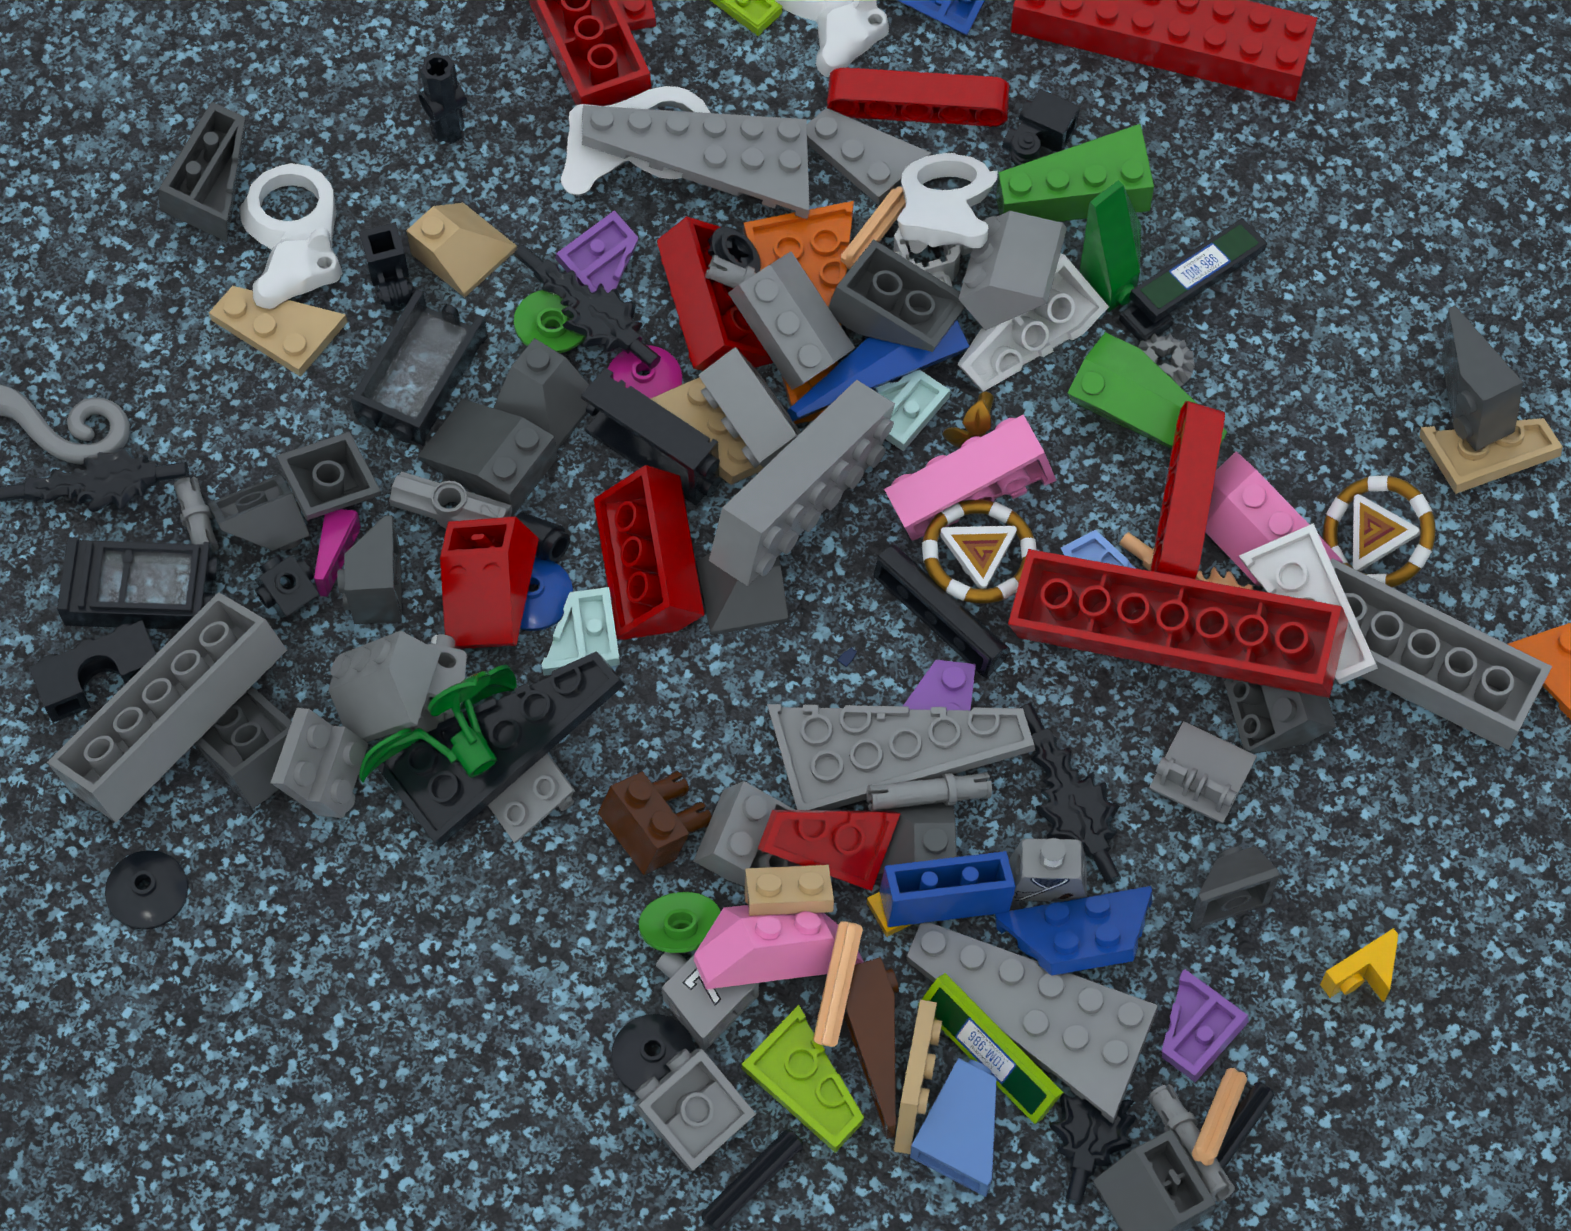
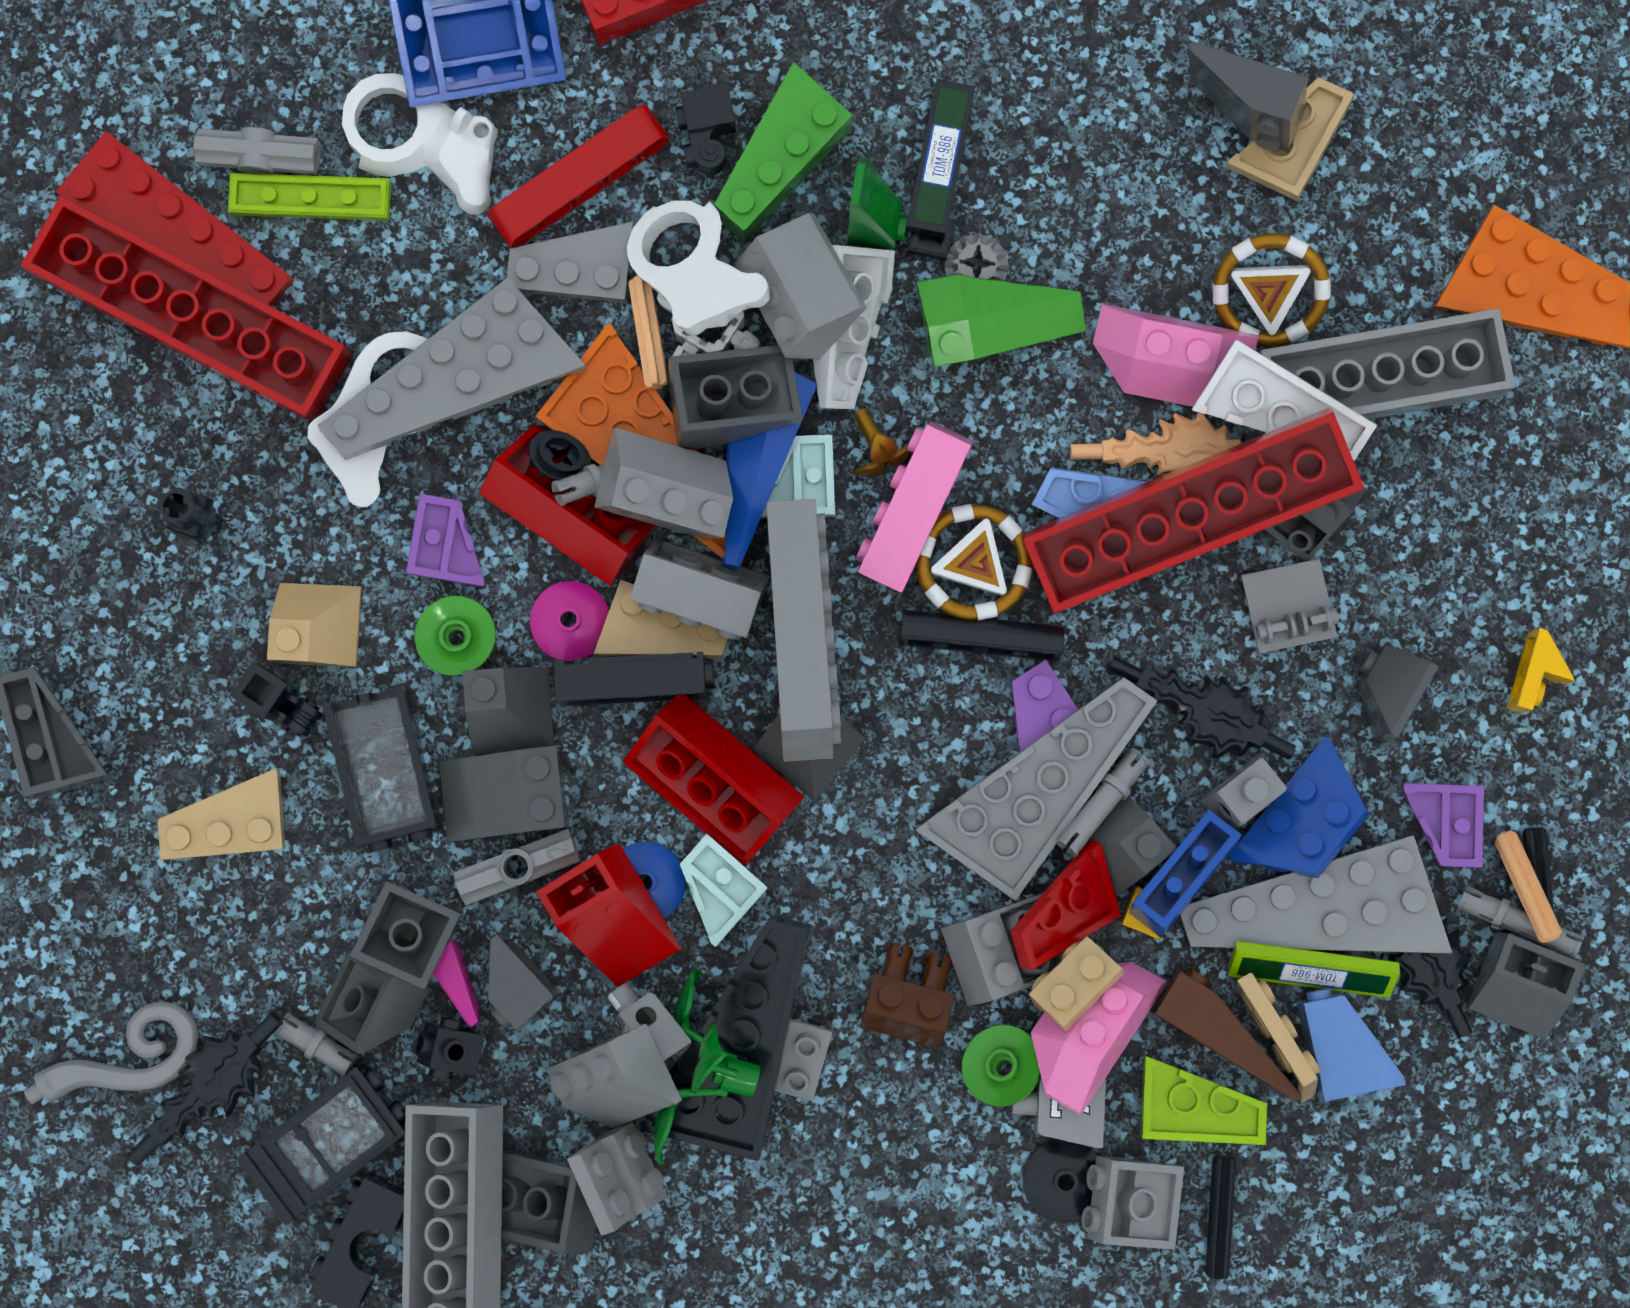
camera: 45 degrees left, 20 degrees up
(299, 248) = (185, 738): white animal -> none
(552, 537) = (610, 830): black cone -> none
(596, 316) = (490, 601): black piece -> none
(838, 983) = (1171, 1024): light nougat axle -> none
(847, 657) = (937, 731): dark blue piece -> none
(1188, 490) = (1099, 378): red beam -> none

